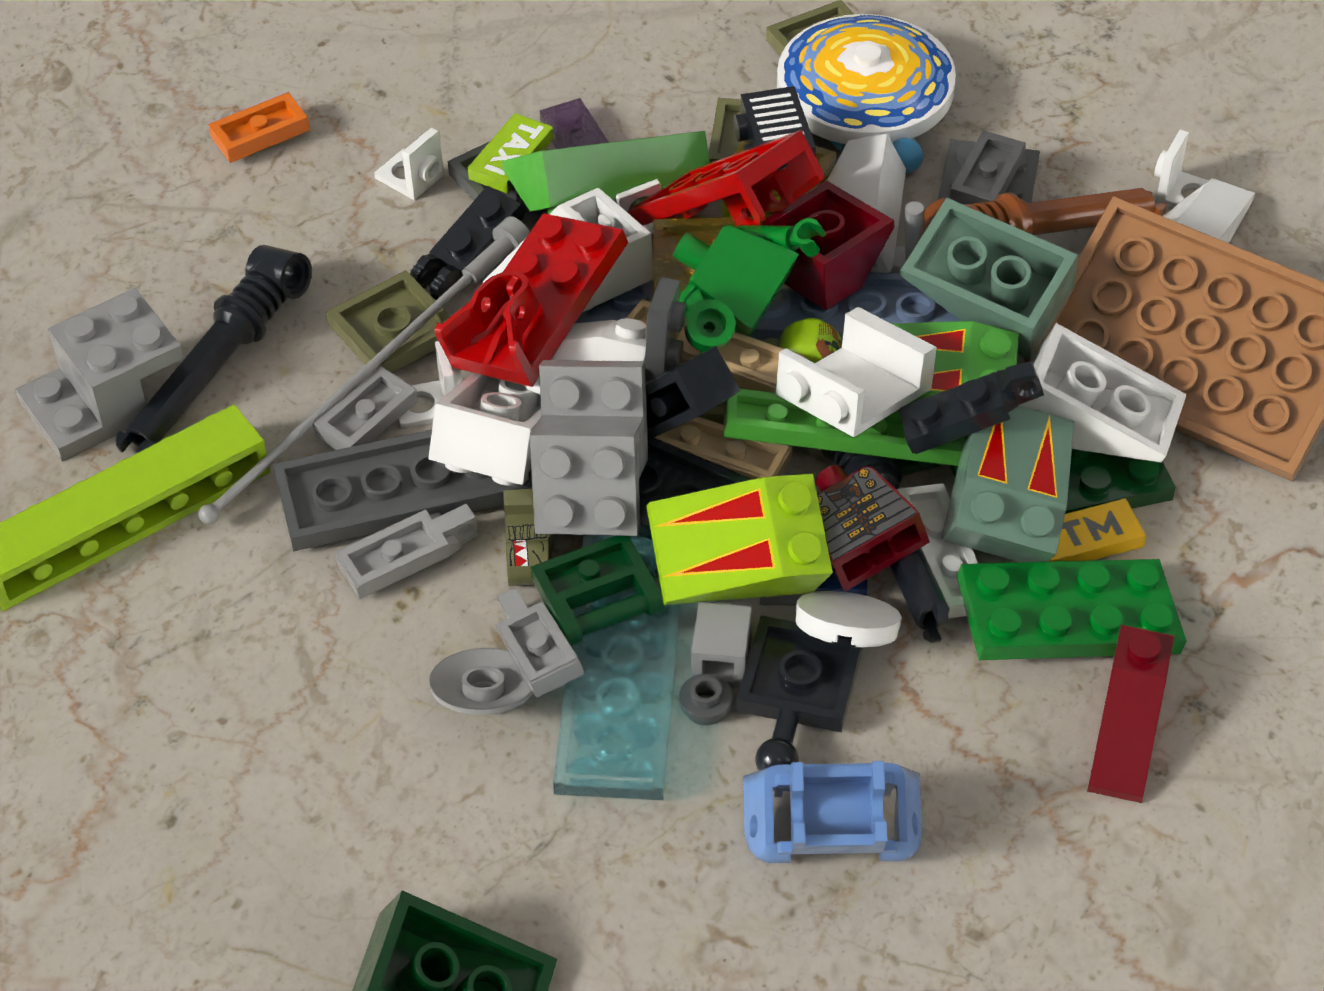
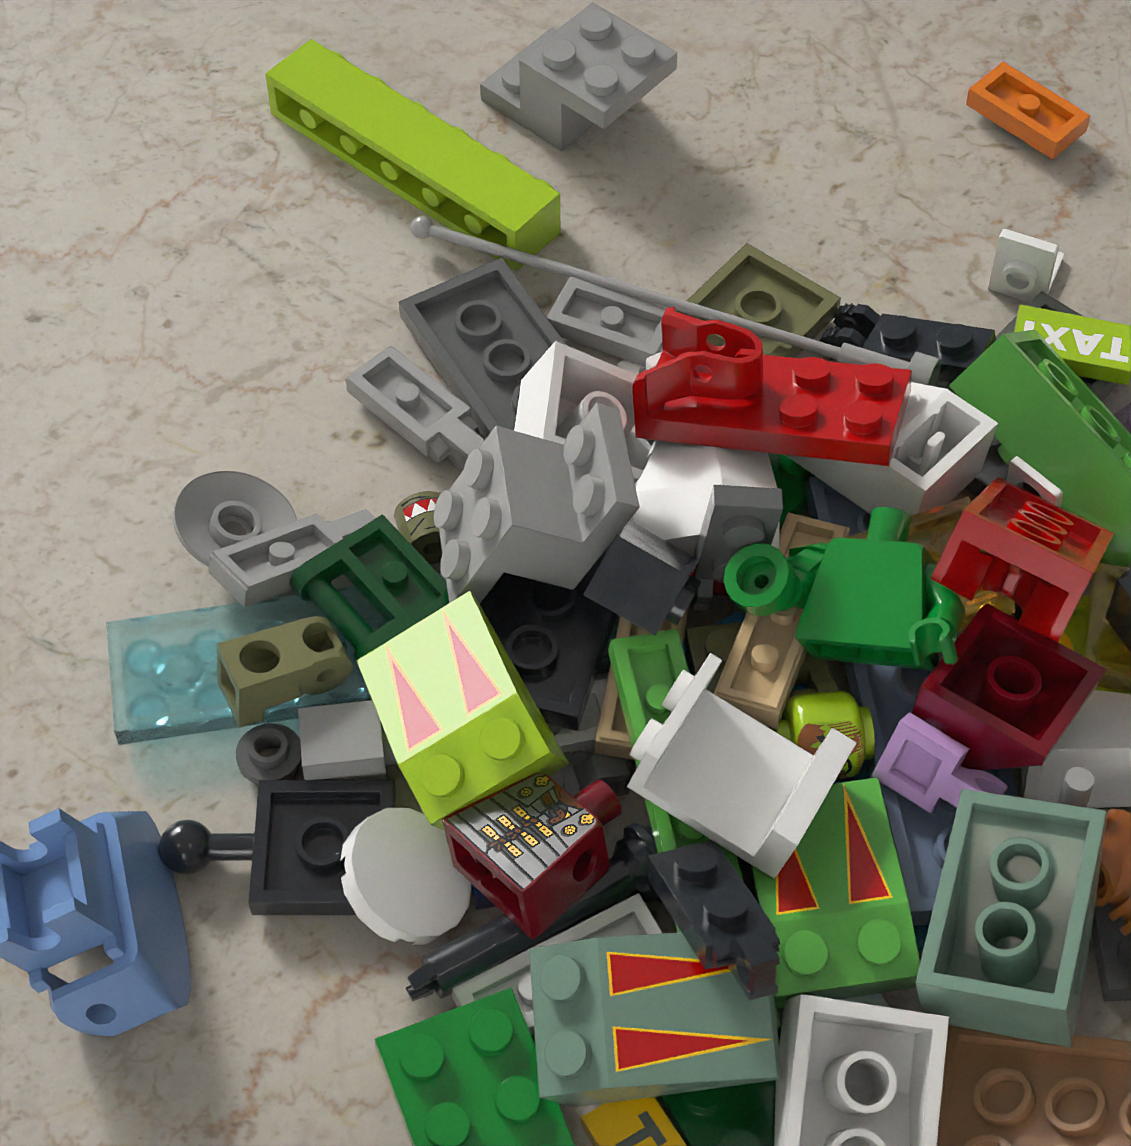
camera: 75 degrees right, 5 degrees up
(238, 319) = (702, 170): black piece -> none
(654, 659) = (280, 666): none -> olive leg
(866, 289) = (927, 766): none -> lavender plate

